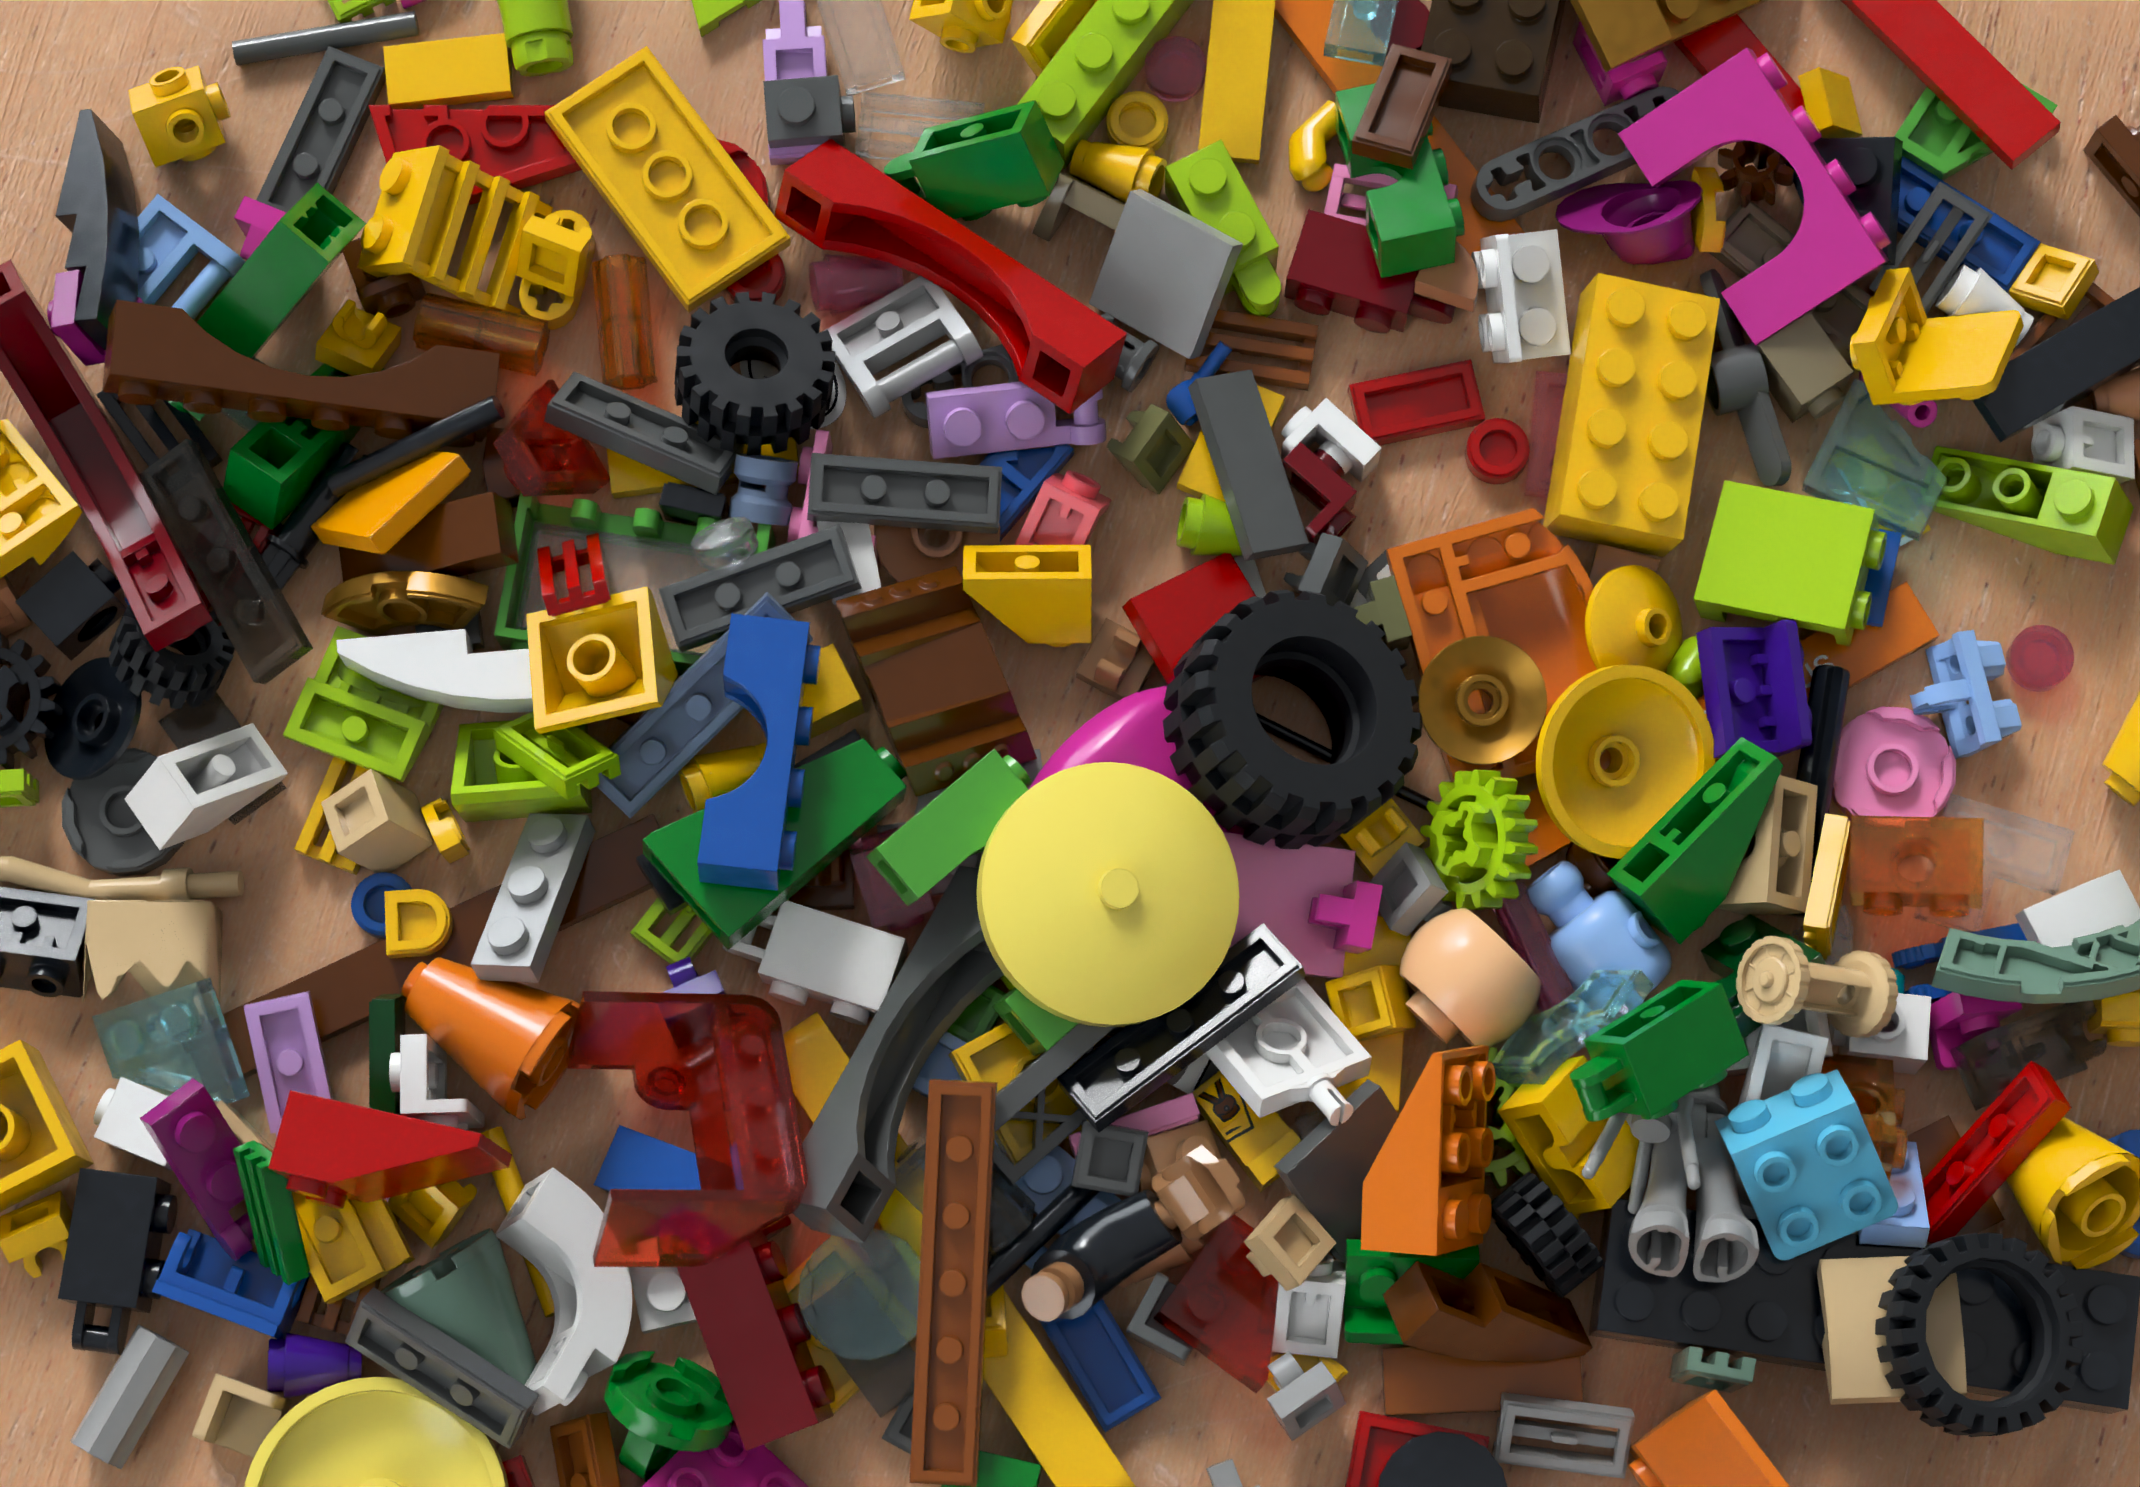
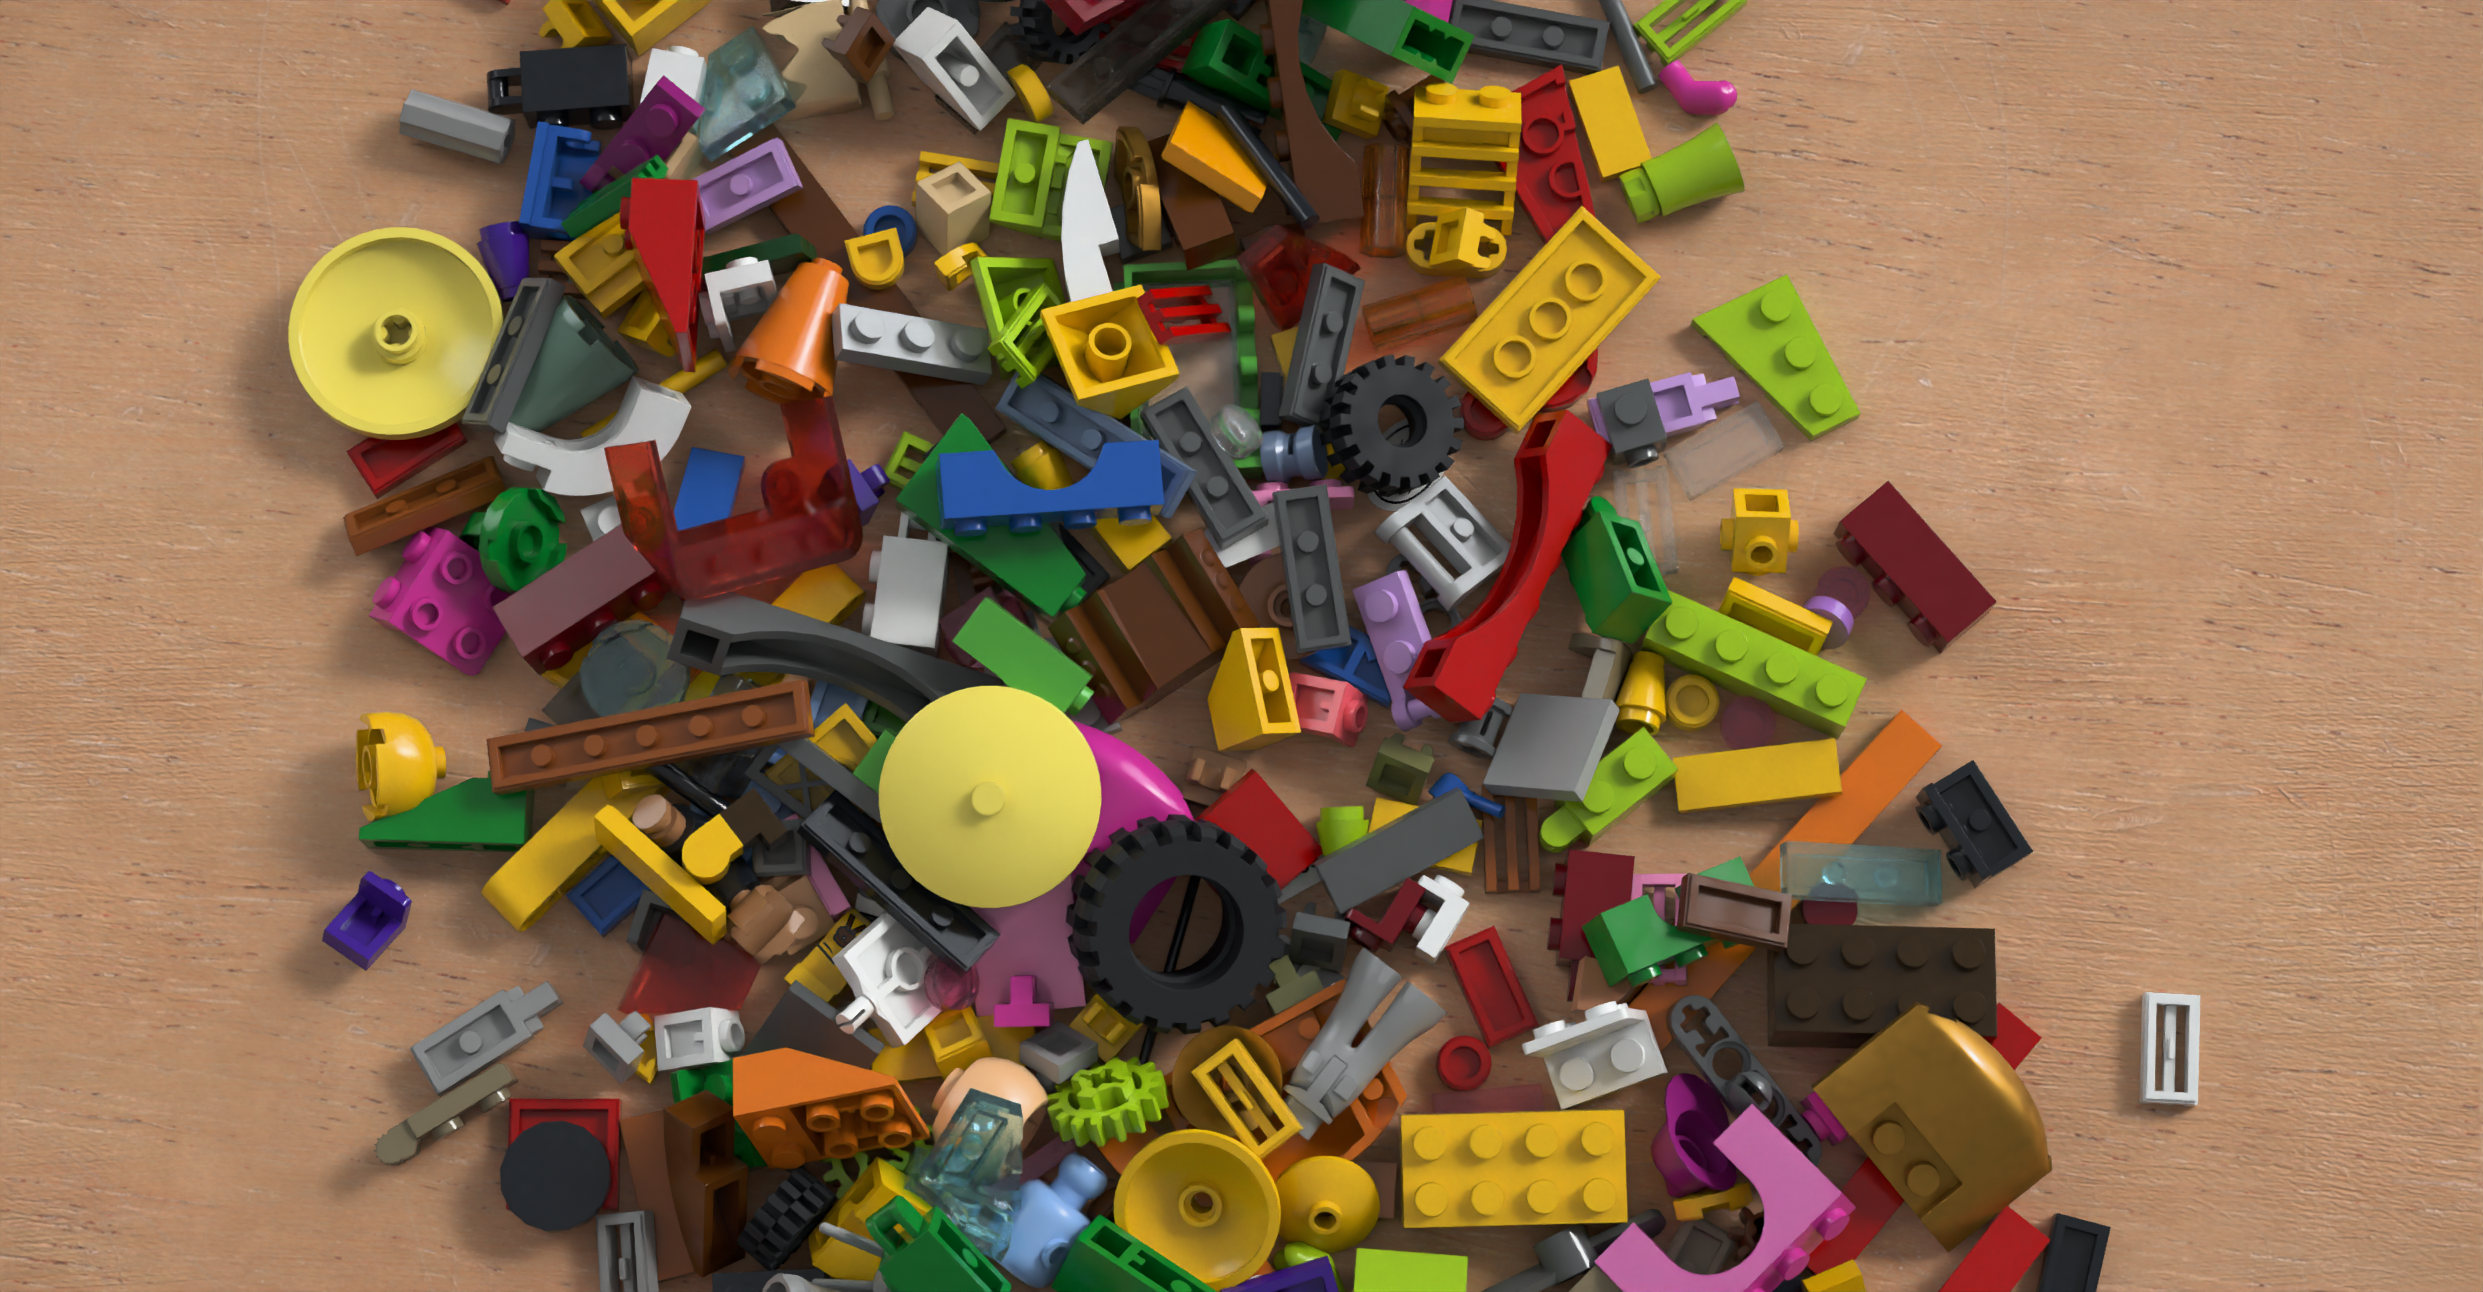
camera: 75 degrees right, 0 degrees up
(155, 881) = (860, 43): none -> reddish brown tile
(238, 1415) = (458, 211): tan panel -> none
(256, 704) = (1031, 93): none -> yellow tile
(850, 282) = (1494, 491): clear pink cone -> none
(1102, 1226) = (729, 835): none -> leg
(1117, 1300) = (660, 874): none -> yellow tile
(1288, 1243) = (738, 1007): tan tile -> none
(1308, 149) = (1695, 852): yellow arm -> none
(1311, 998) = (947, 989): none -> clear pink tile
(1461, 701) = (1275, 1137): none -> yellow tile
(1493, 578) = (1334, 1072): none -> light grey piece
(1524, 984) = (979, 1152): none -> clear light blue wing
(1603, 153) = (1740, 1100): none -> dark grey hinge

